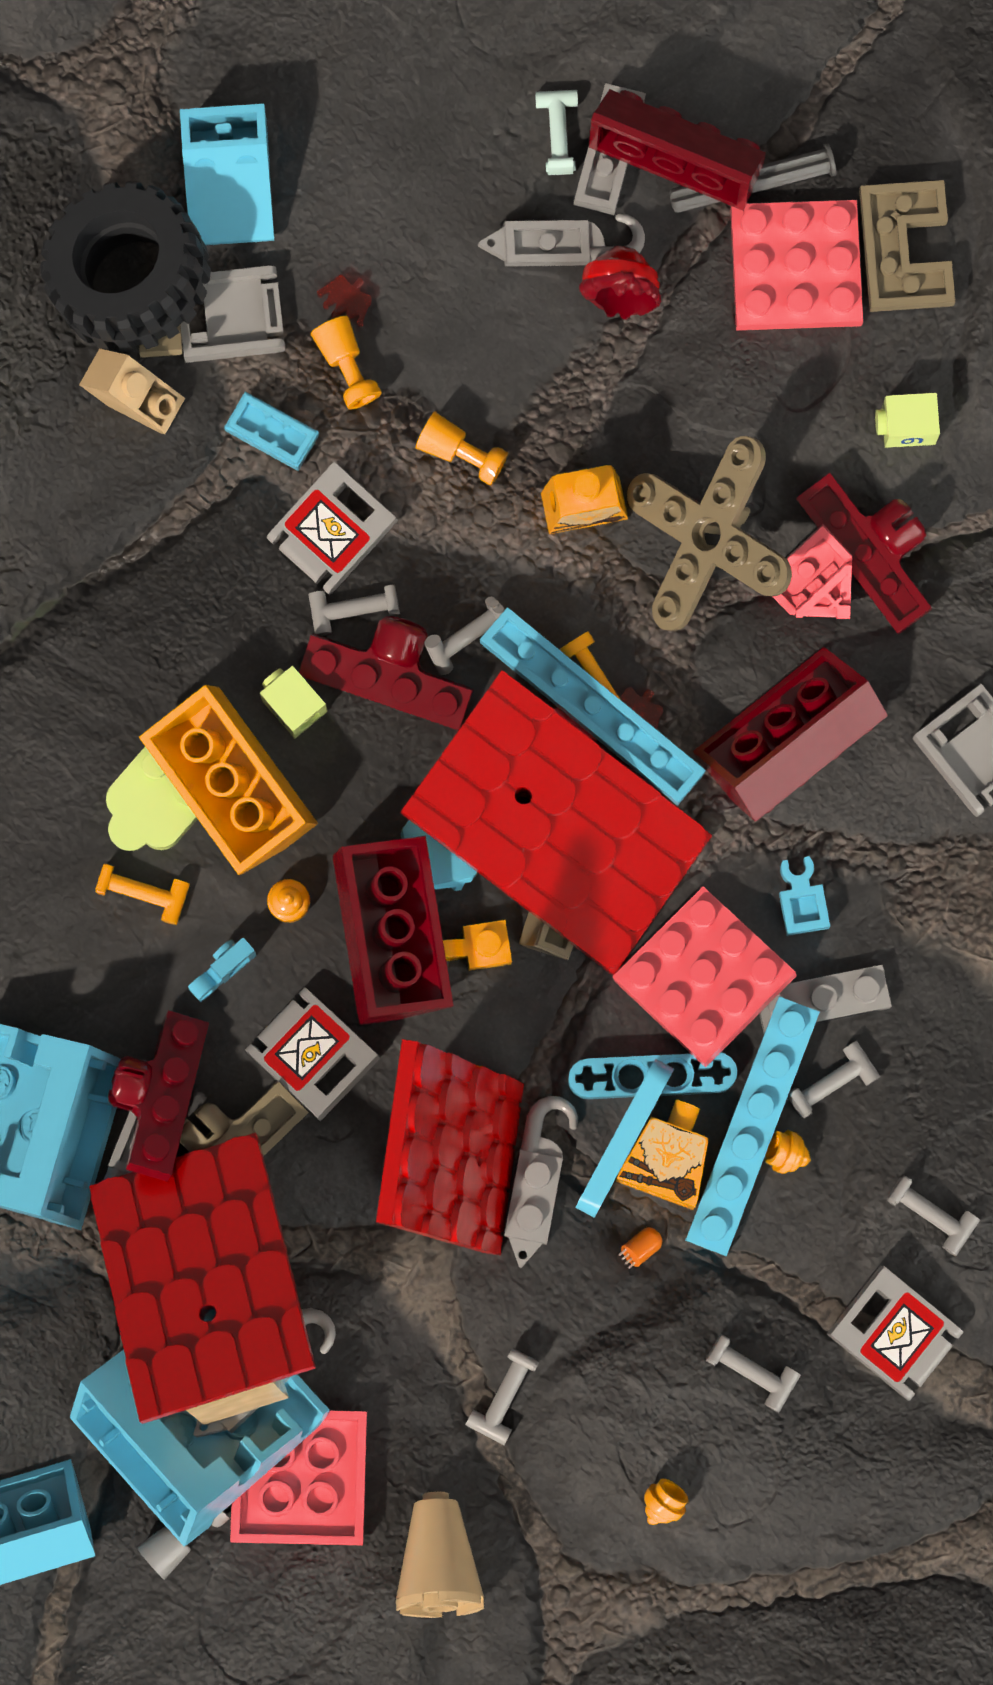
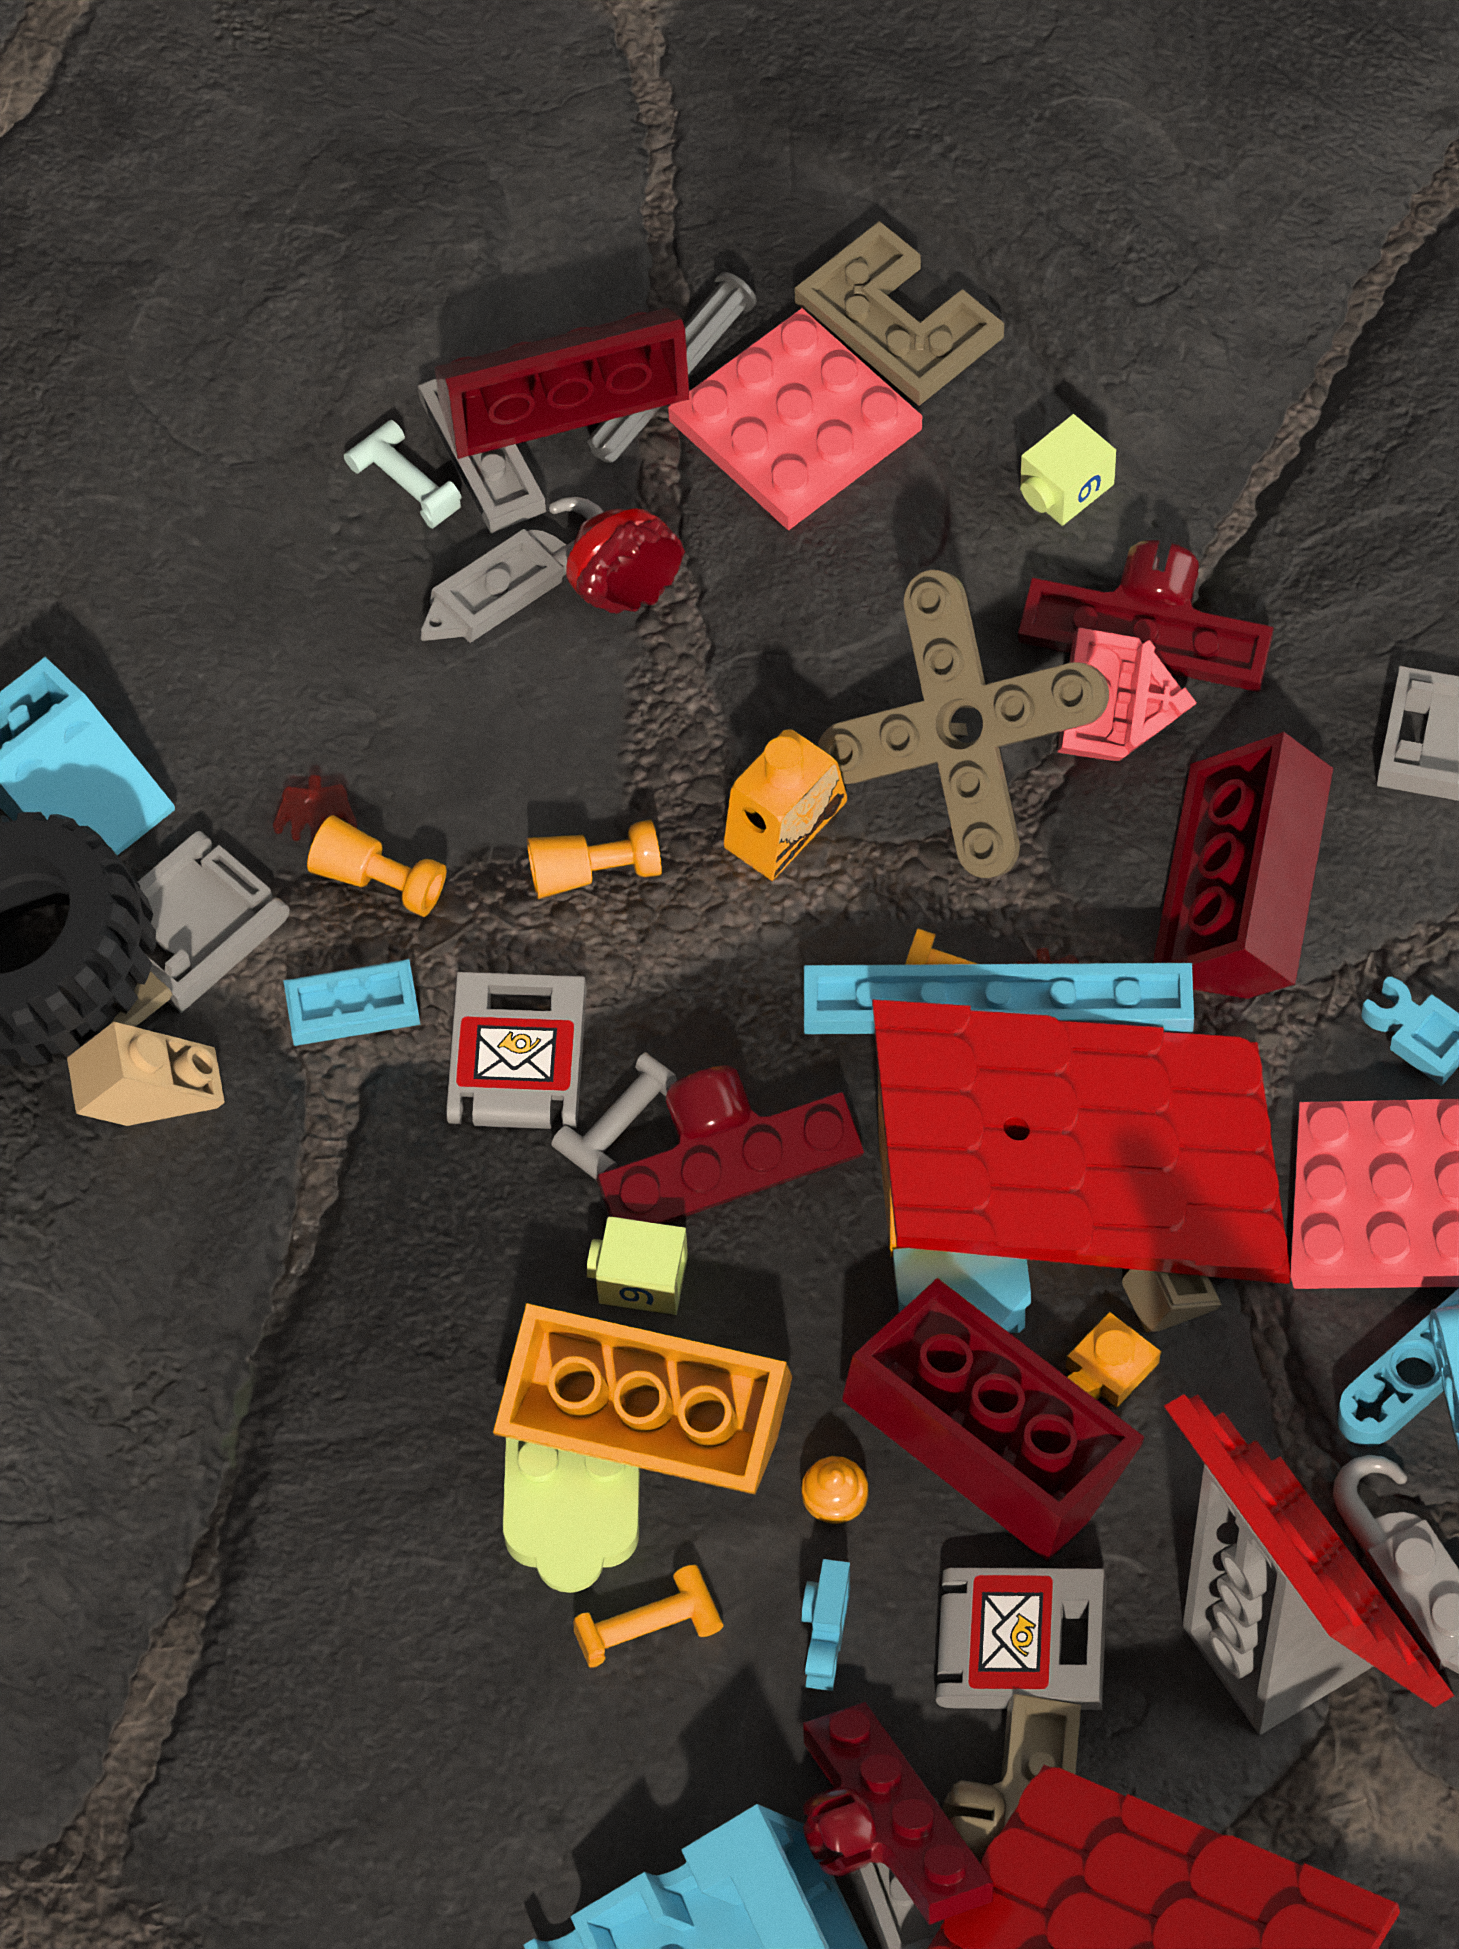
camera: 35 degrees left, 20 degrees down
(442, 651) = (767, 1076): light grey piece -> none

